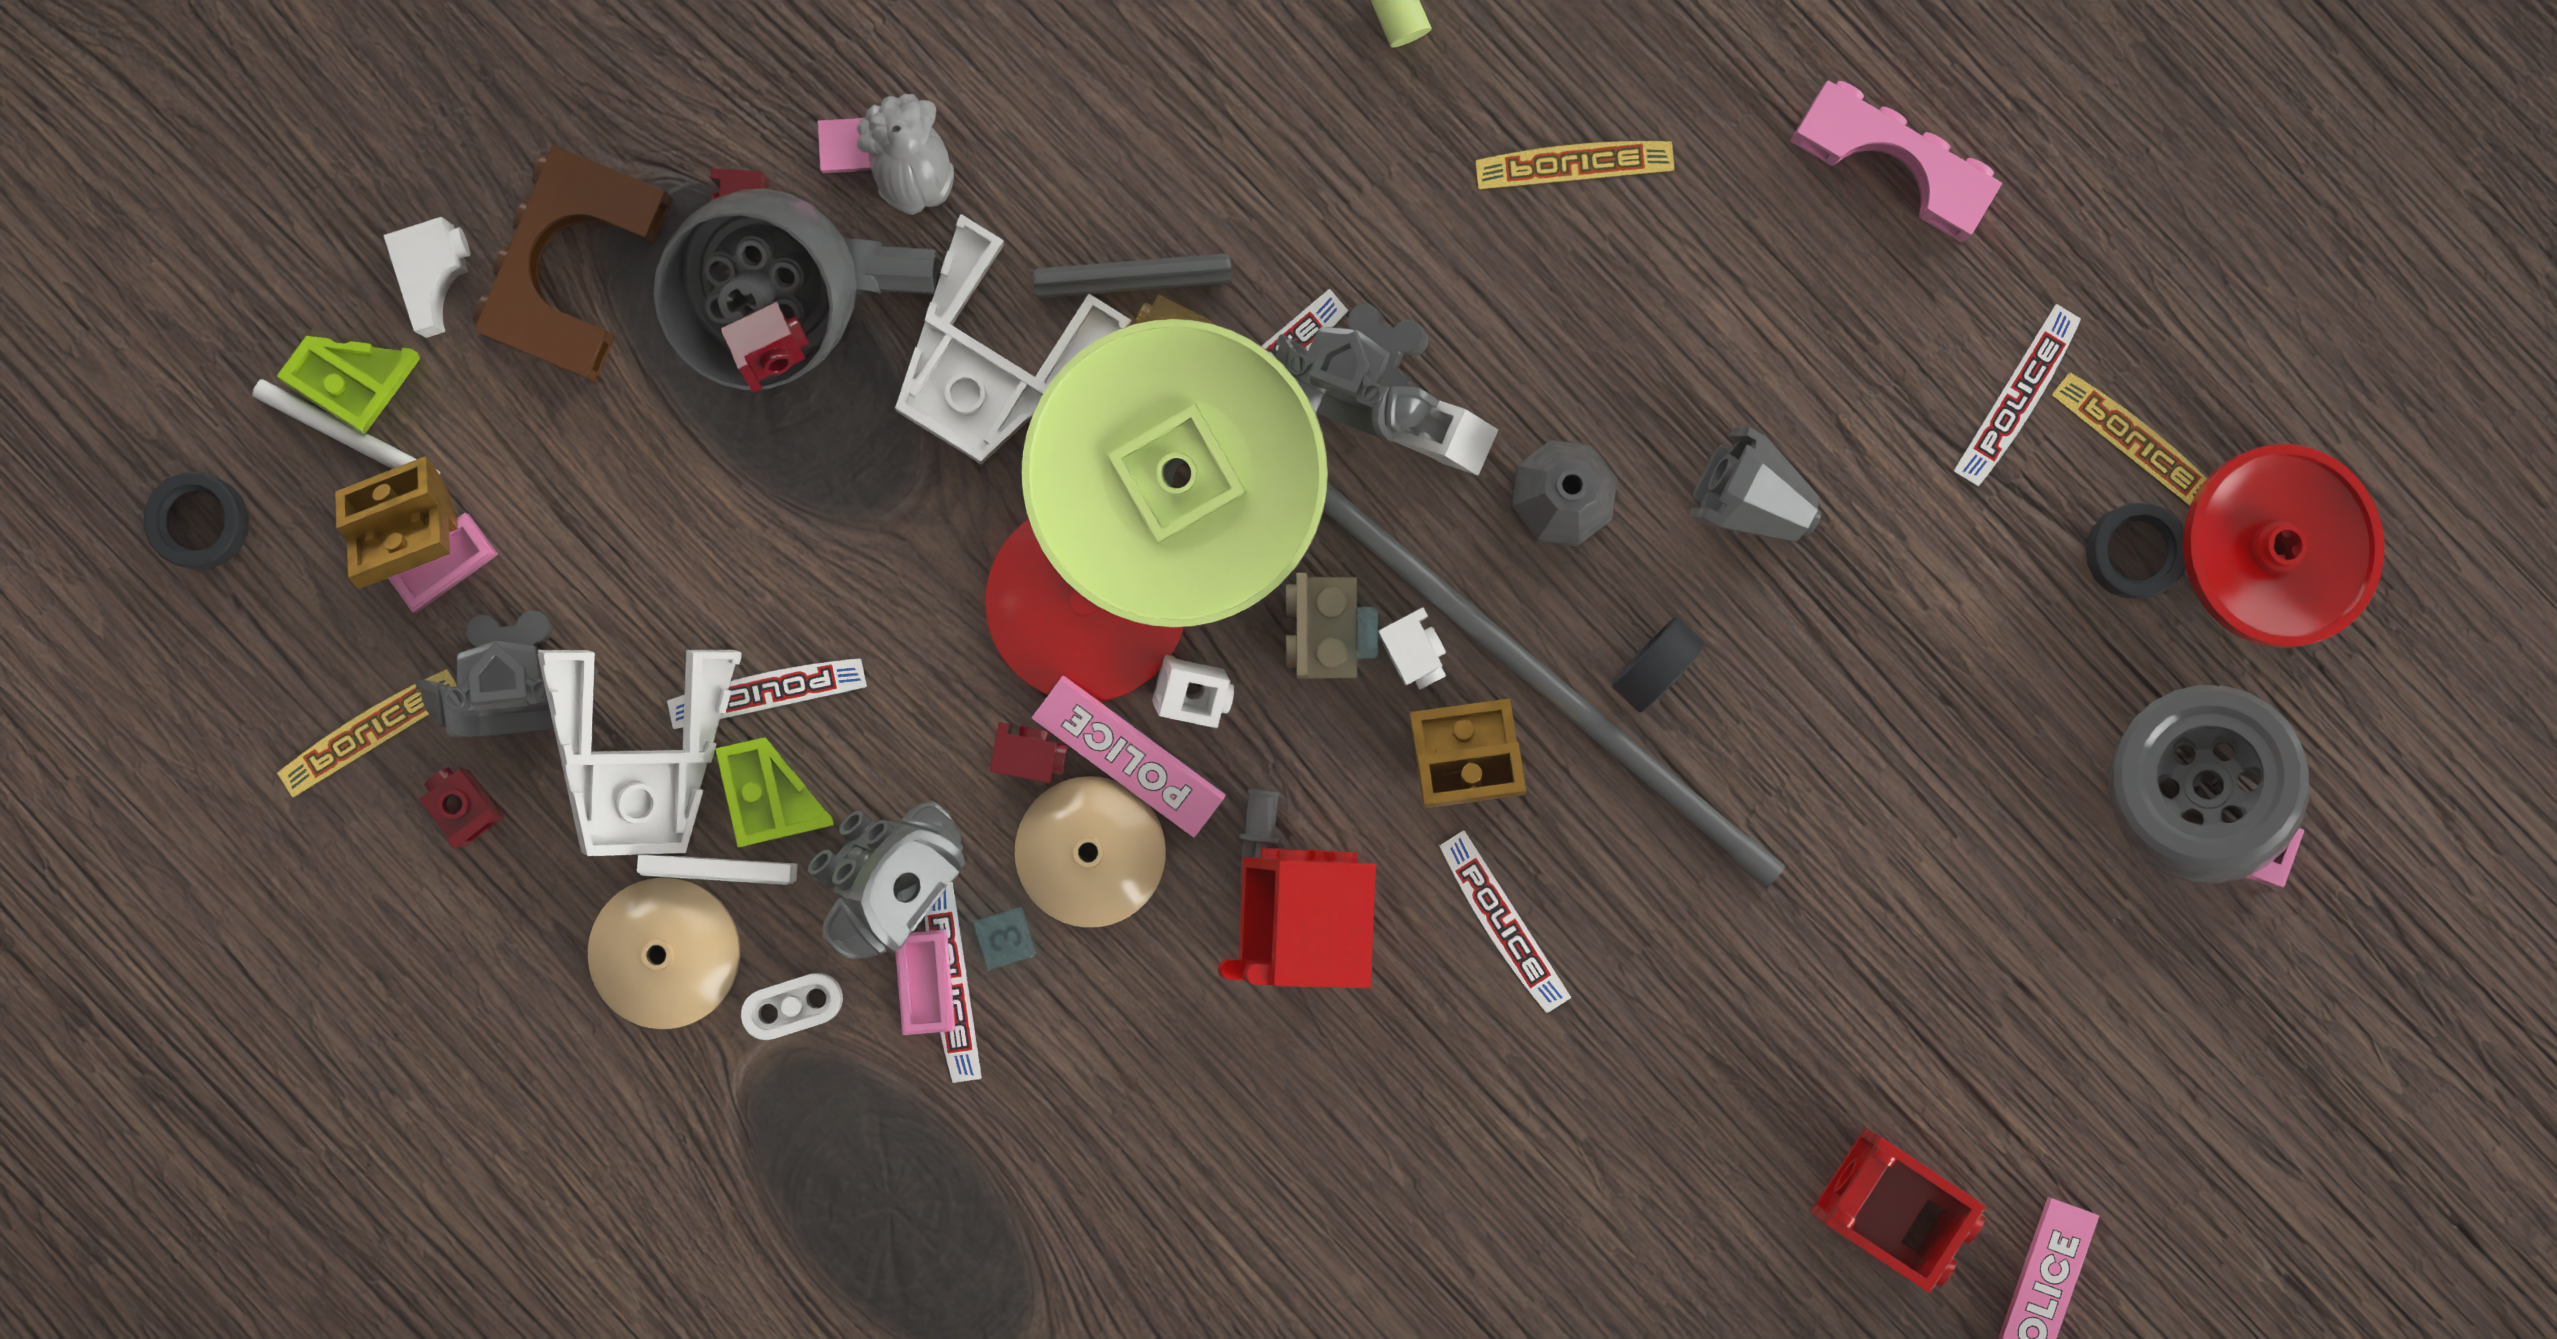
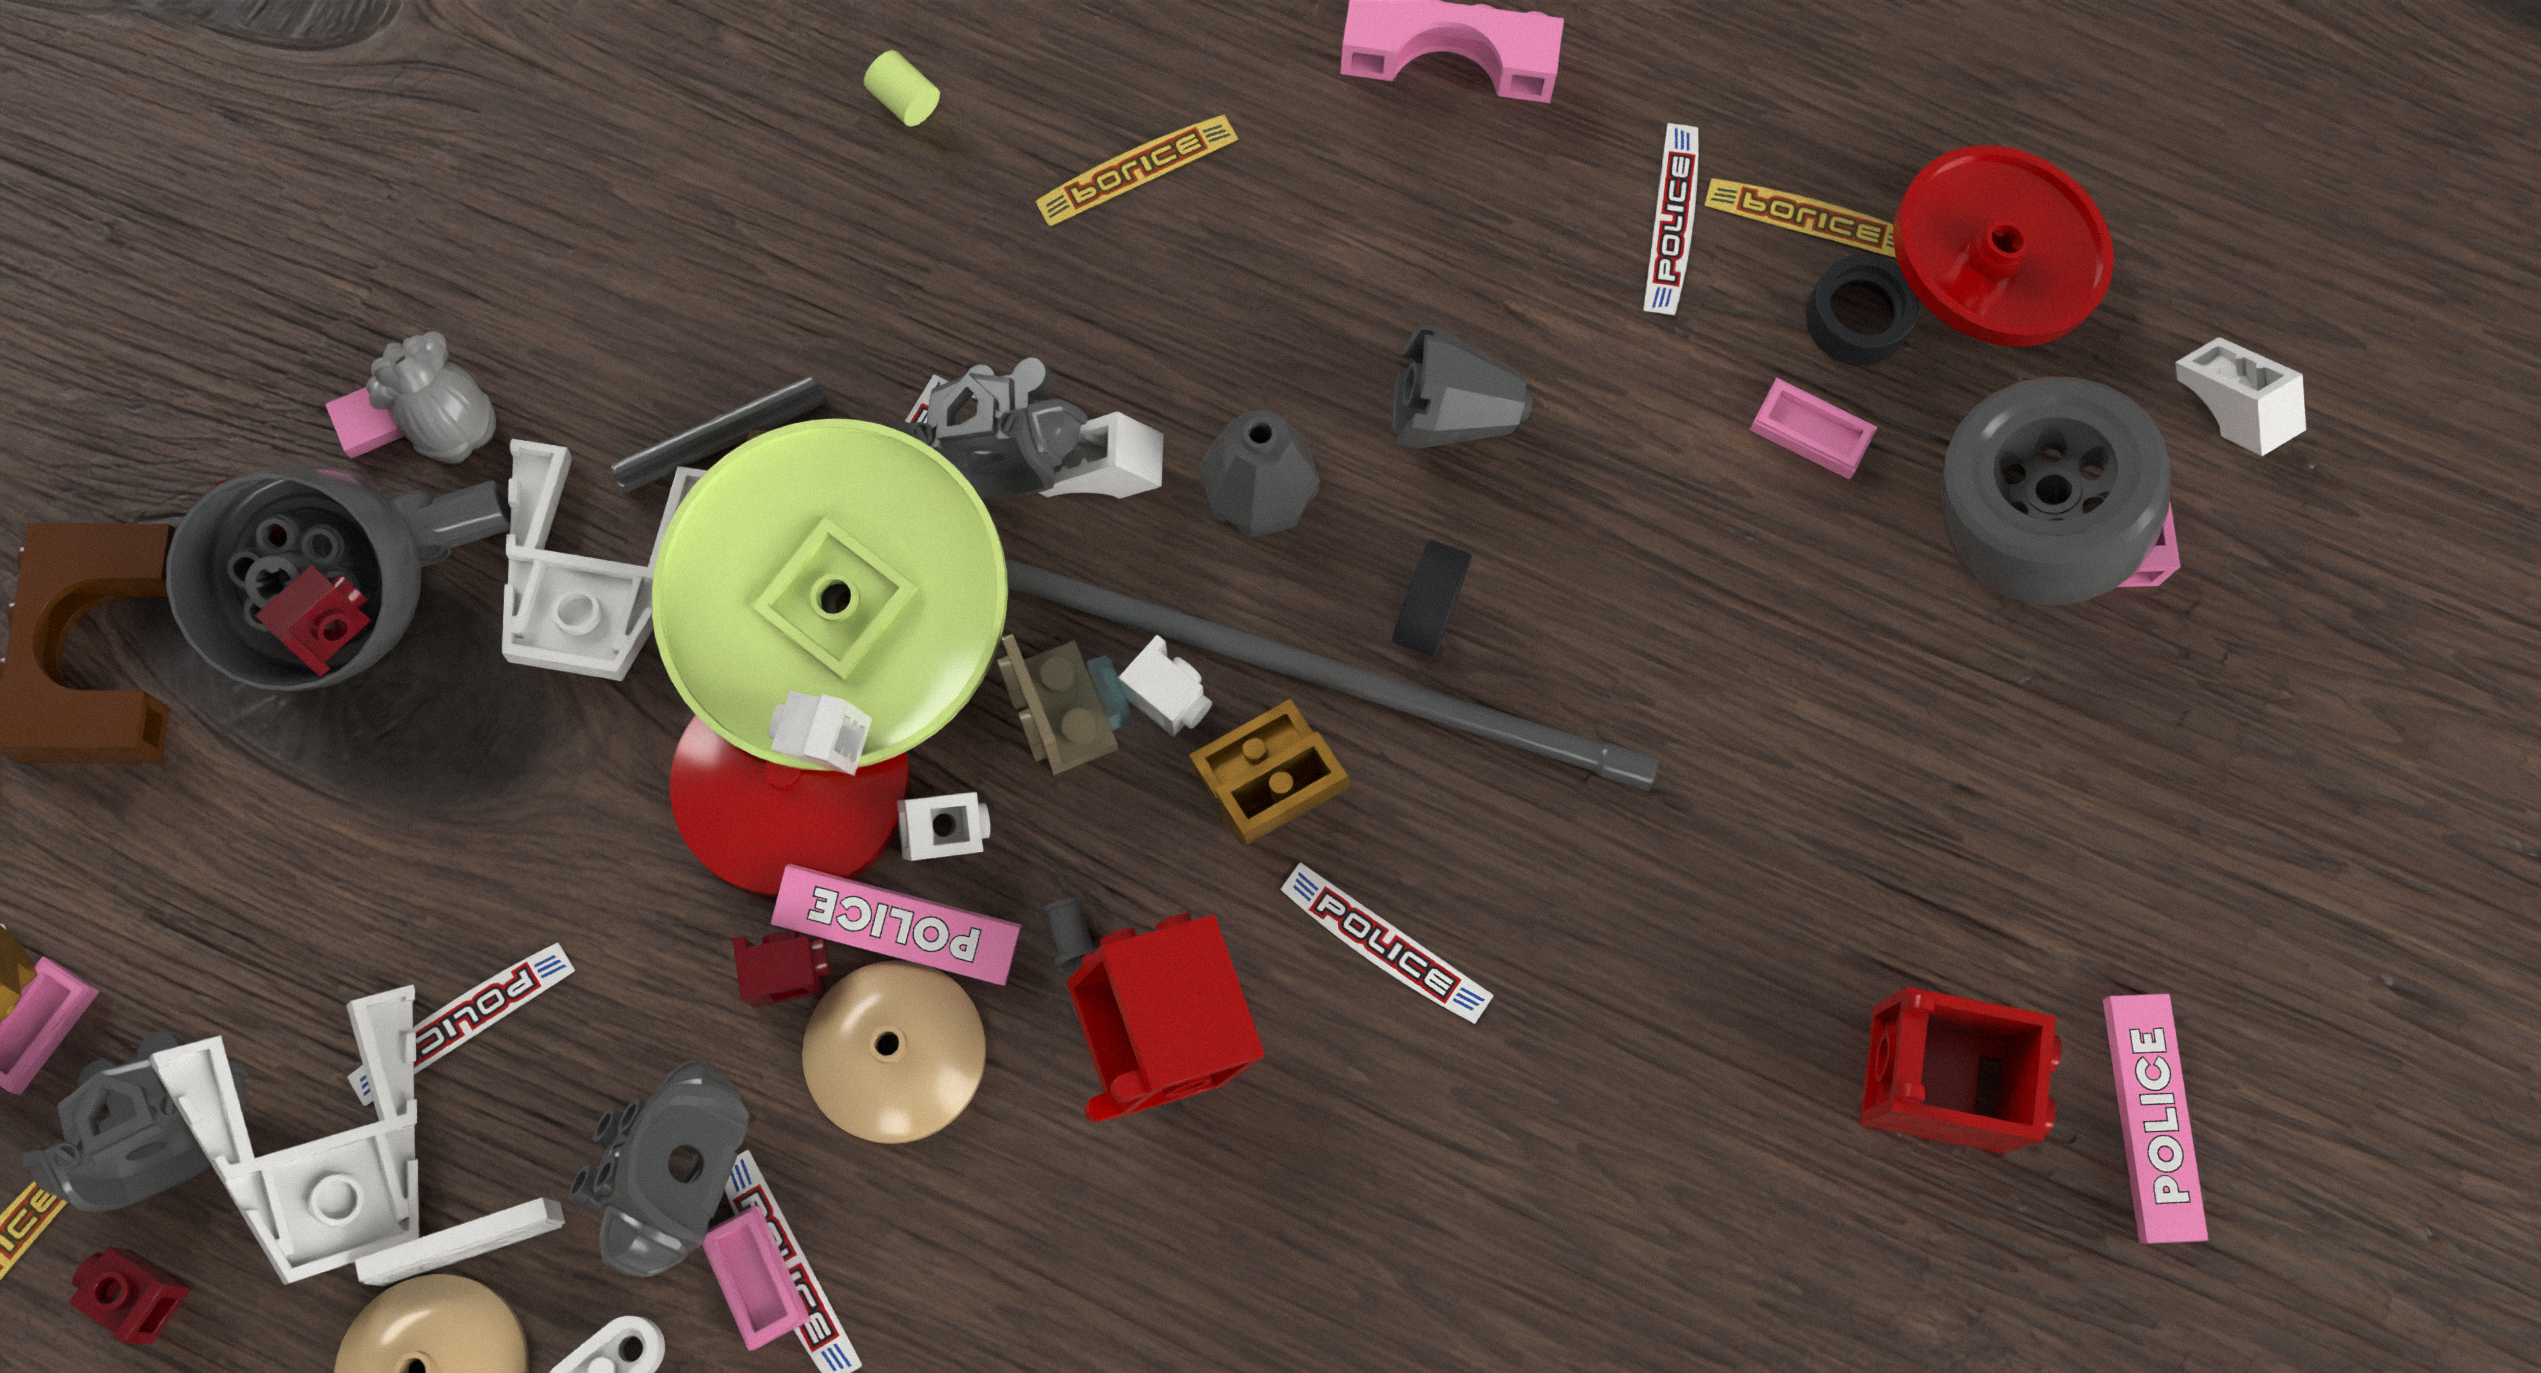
camera: 25 degrees left, 15 degrees down
(765, 794) = (493, 1134): lime wing -> none
(1005, 938) = (831, 1188): clear light blue tile -> none
(1124, 594) = (820, 731): none -> white arch
(2046, 636) = (1813, 428): none -> bright pink tile
(2423, 758) = (2249, 395): none -> white arch

